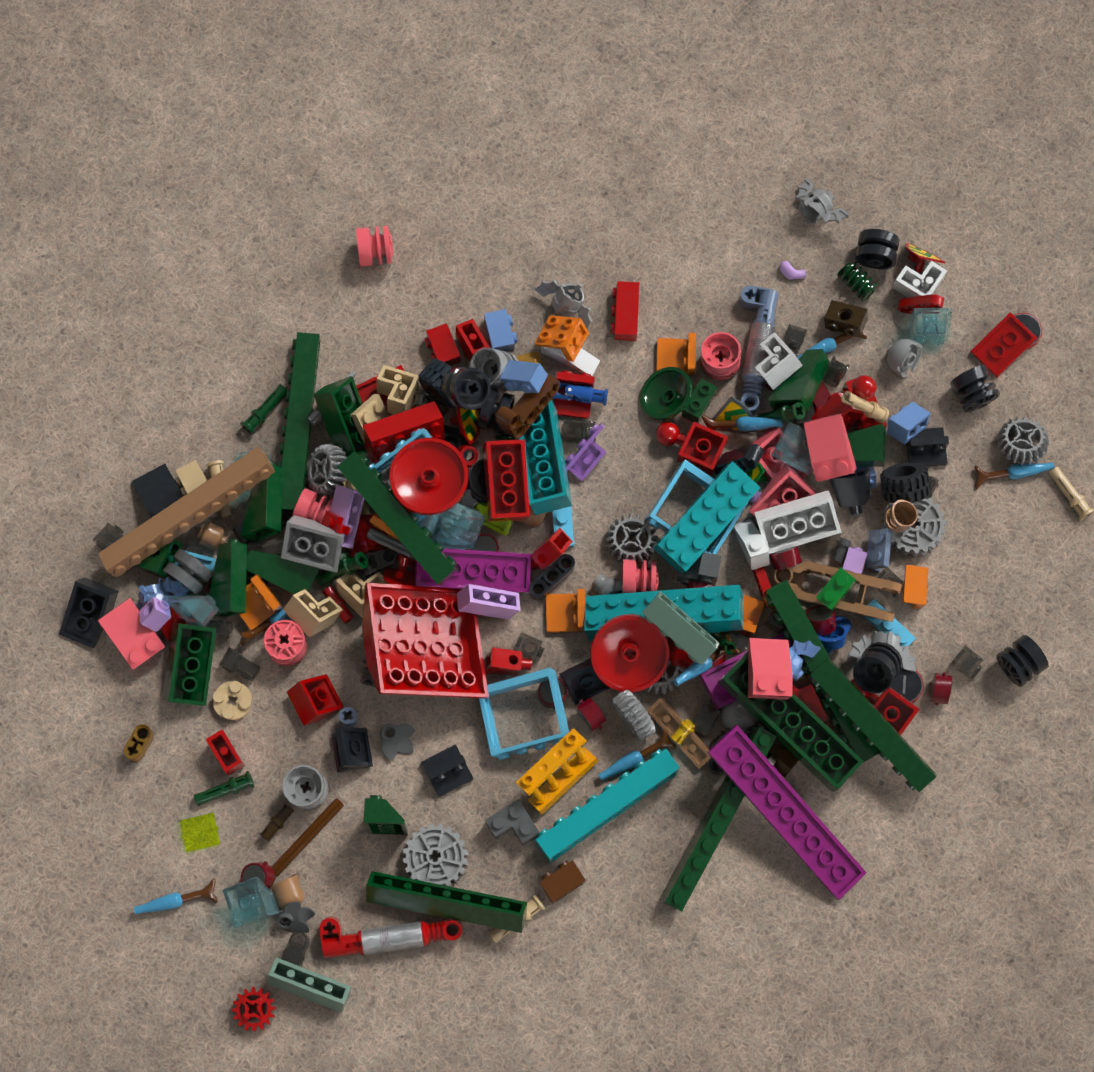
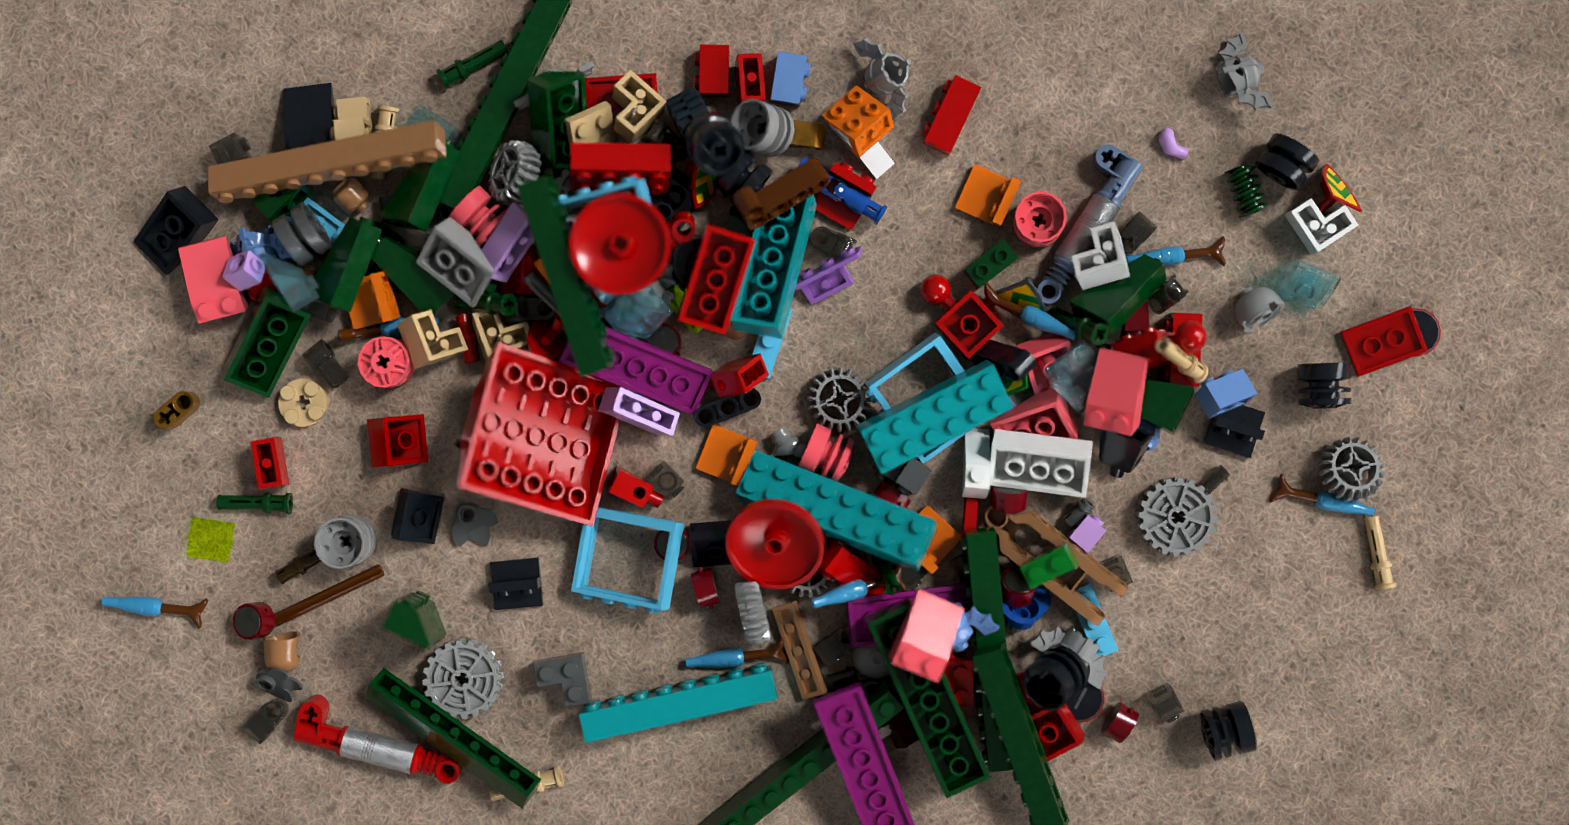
camera: 25 degrees right, 15 degrees up
(247, 1016) = (191, 756): red gear -> none
(250, 902) = (232, 650): clear light blue slope -> none
(308, 985) = (264, 765): sand green brick -> none
(334, 522) = (492, 246): red plate -> none
(348, 723) = (420, 474): sand blue bush -> none
(523, 376) = (789, 157): medium blue brick -> none
(562, 881) = (594, 764): reddish brown brick -> none
(564, 778) = (637, 642): light orange fence -> none
(659, 390) = (946, 231): dark green dish -> none
(680, 628) = (843, 545): sand green brick -> none
(683, 731) = (805, 651): yellow pin -> none
(846, 318) = (1206, 220): dark brown brick -> none
(878, 549) = (1122, 531): sand blue bracket -> none
(901, 516) = (1164, 508): medium nougat helmet -> none
(905, 482) = (1188, 467): black tyre -> none
(907, 305) = (1307, 253): red beam -> none
(915, 586) = (1145, 591): orange panel -> none

